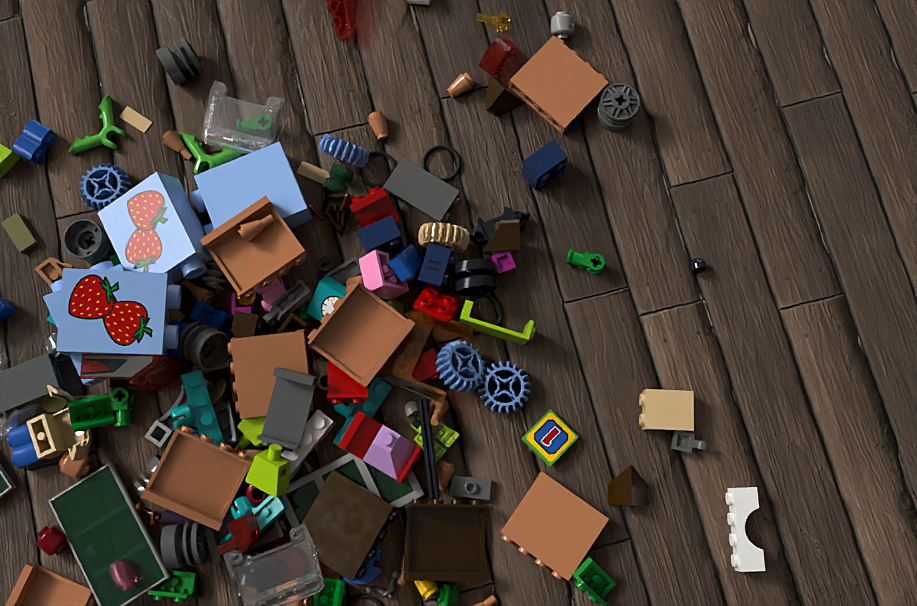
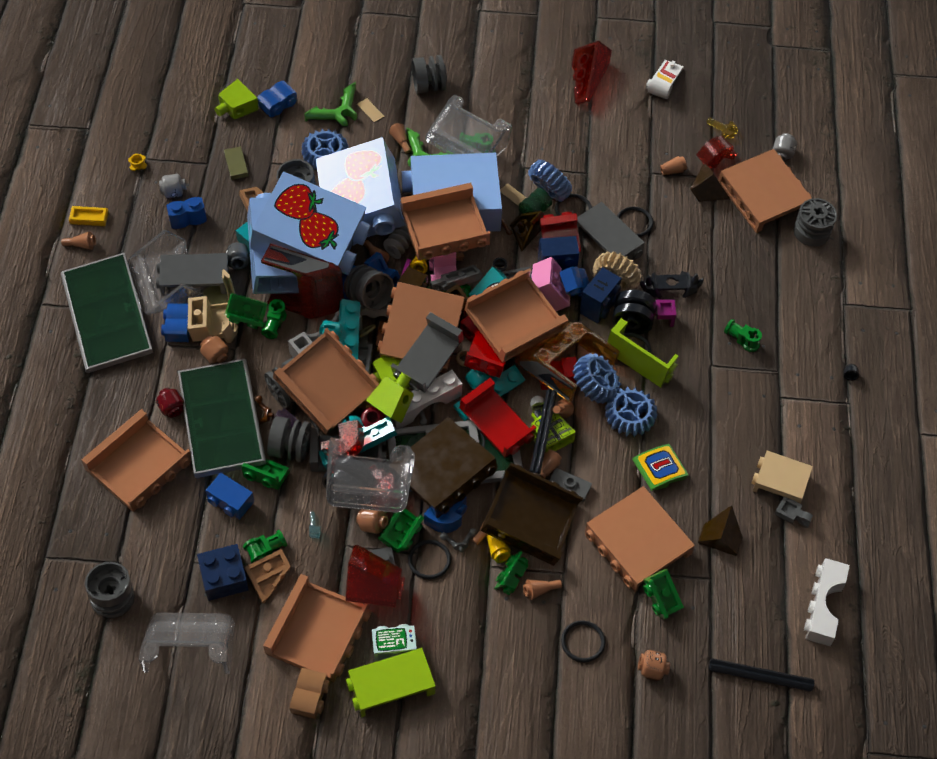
camera: 15 degrees right, 20 degrees down
(123, 575) = (226, 441): clear pink brick -> none
(252, 229) = (447, 206): nougat cone -> none
(378, 124) = (587, 173): nougat cone -> none
(389, 452) = (504, 422): lavender slope -> none
(437, 304) = (598, 325): red bracket -> none
(505, 237) = (673, 288): dark brown slope -> none
(544, 165) = (730, 245): dark blue brick -> none

